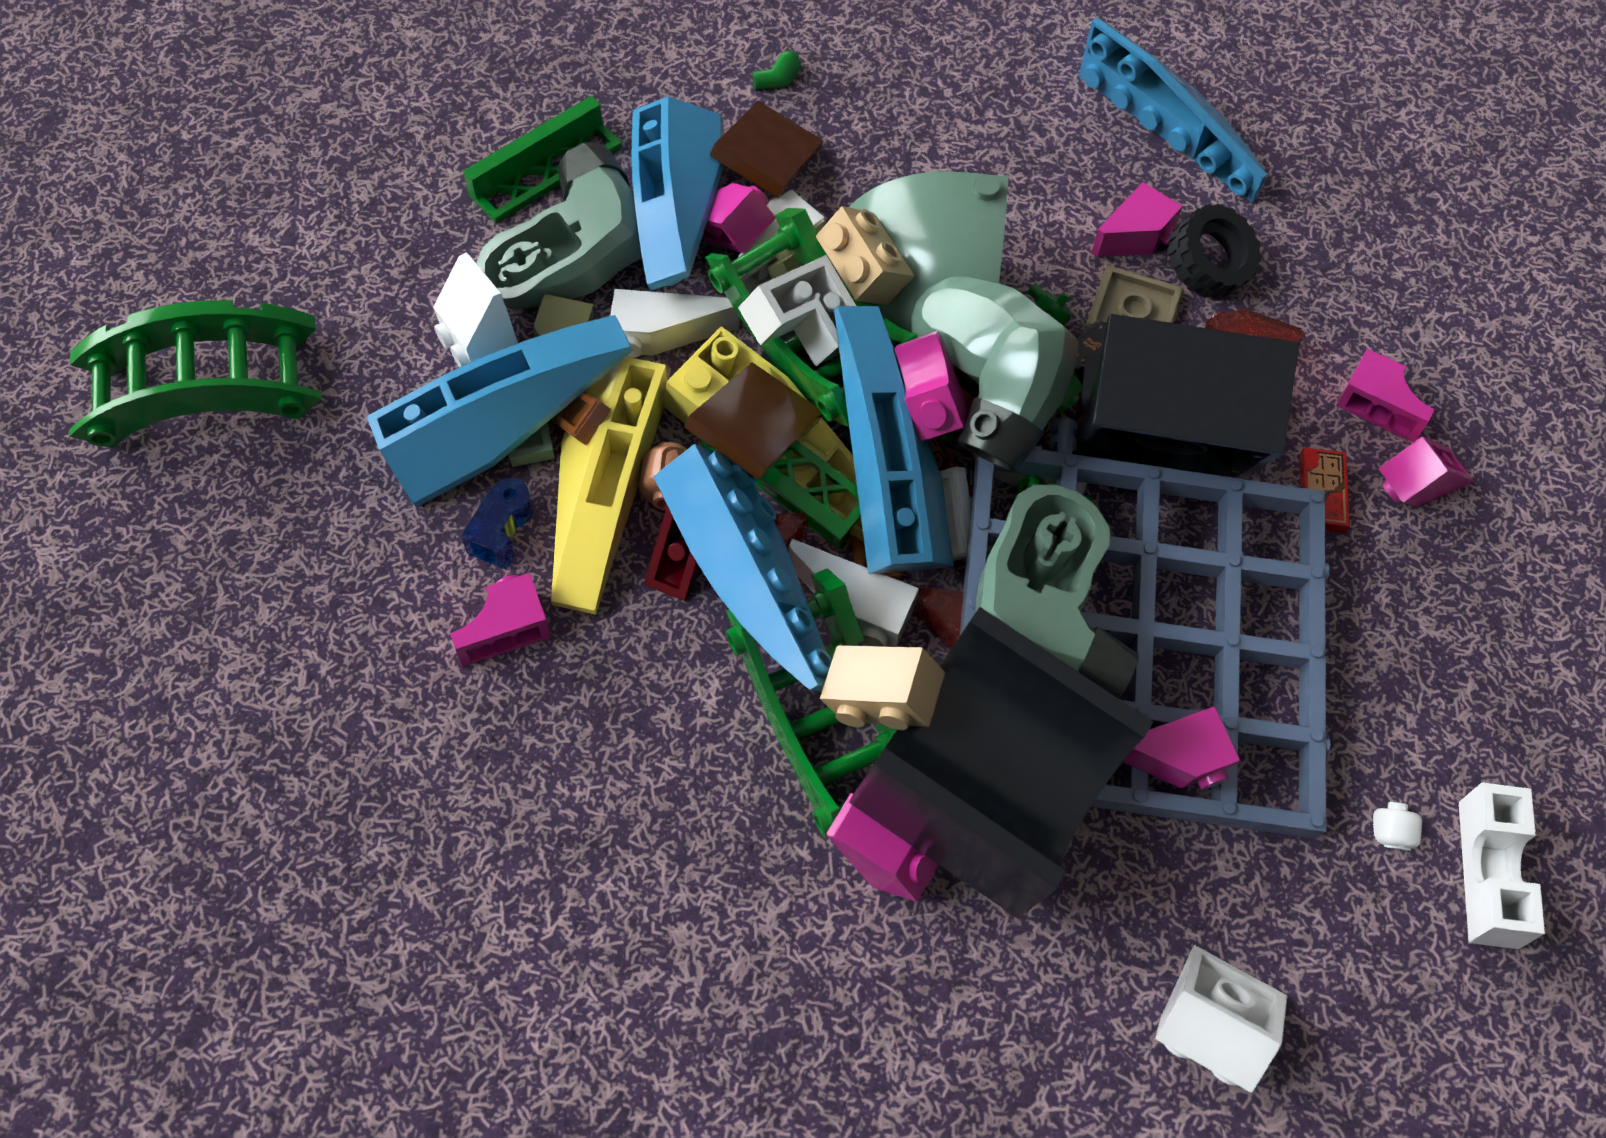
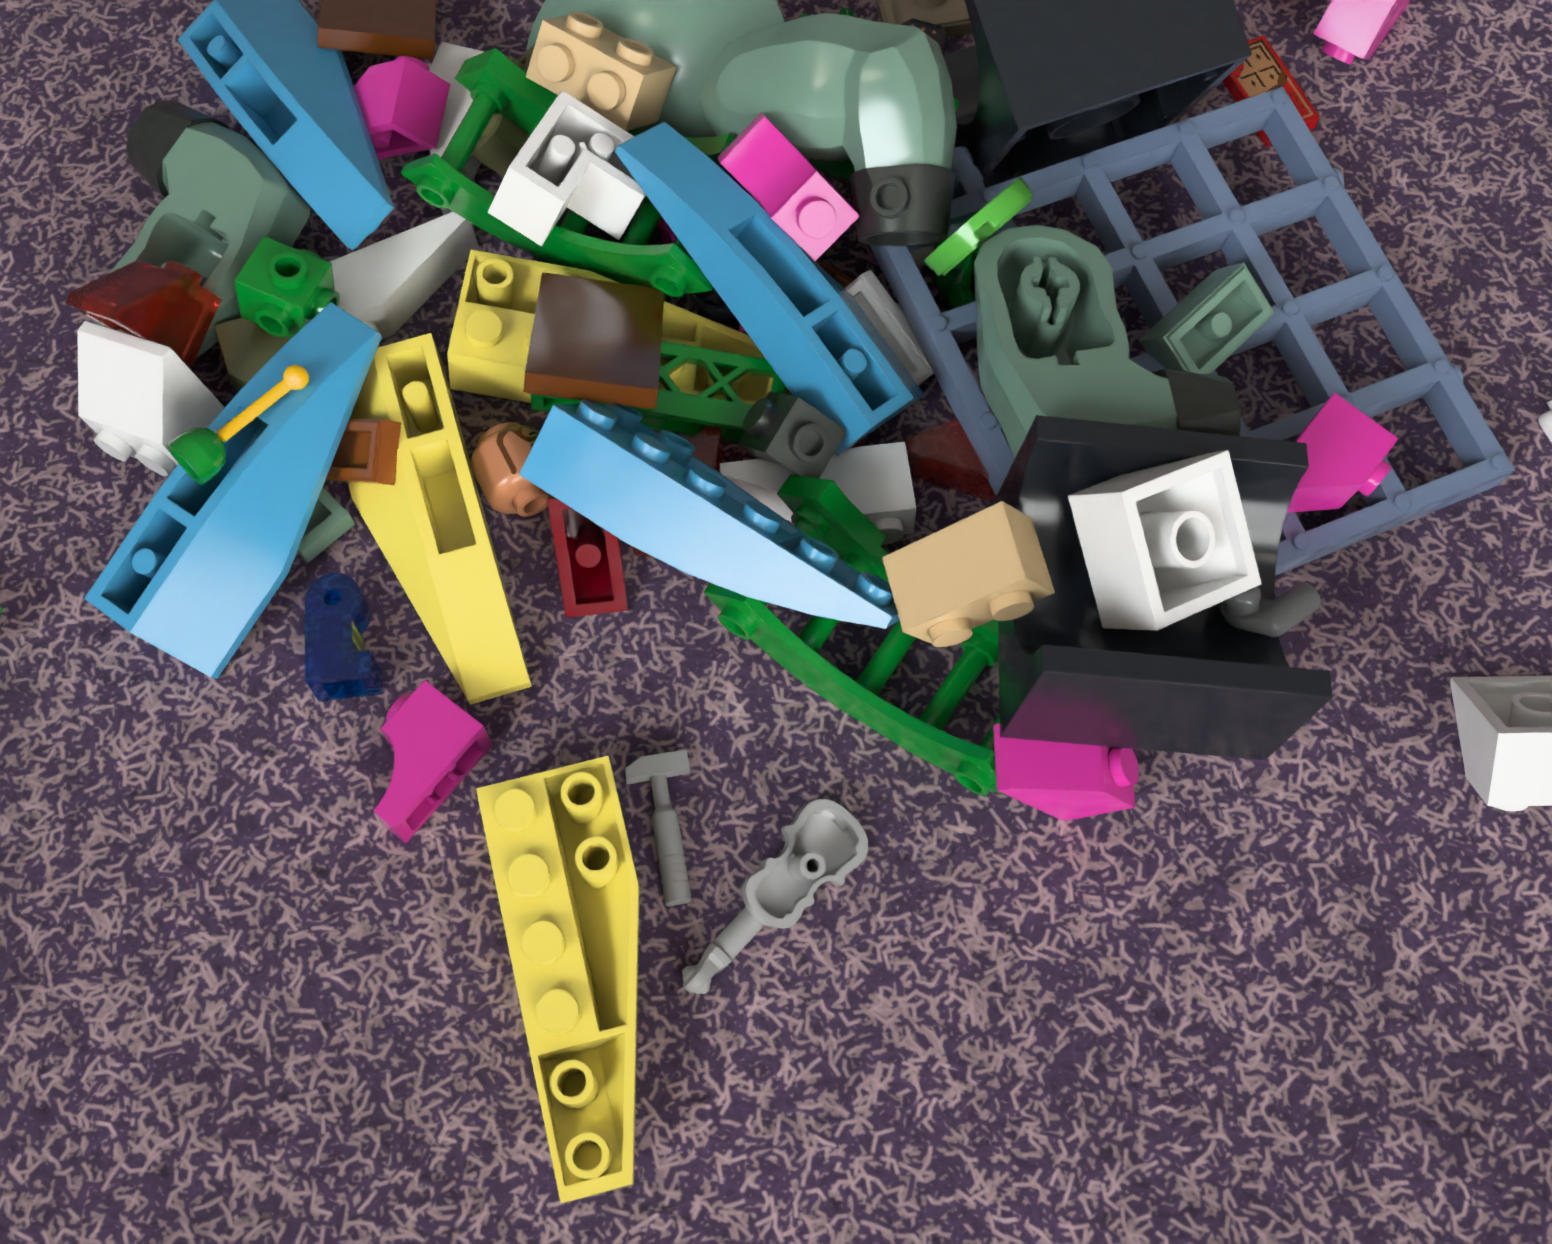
camera: 25 degrees left, 5 degrees up
(482, 364) = (203, 451): none -> hinge
(509, 263) = (152, 304): none -> clear red slope
(509, 788) = (574, 956): none -> light yellow wedge
(530, 154) = (75, 161): green fence -> none
(594, 291) = (284, 287): none -> green brick
(622, 741) = (665, 820): none -> light grey piece
(705, 812) = (818, 848): none -> light grey piece
(842, 544) = (790, 434): none -> pearl dark grey bracket
(1020, 733) = (1165, 542): none -> white slope
(1046, 472) = (979, 227): none -> bright green tile
(1069, 824) = (1271, 617): none -> dark grey arm
(1166, 619) = (1209, 322): none -> sand green slope

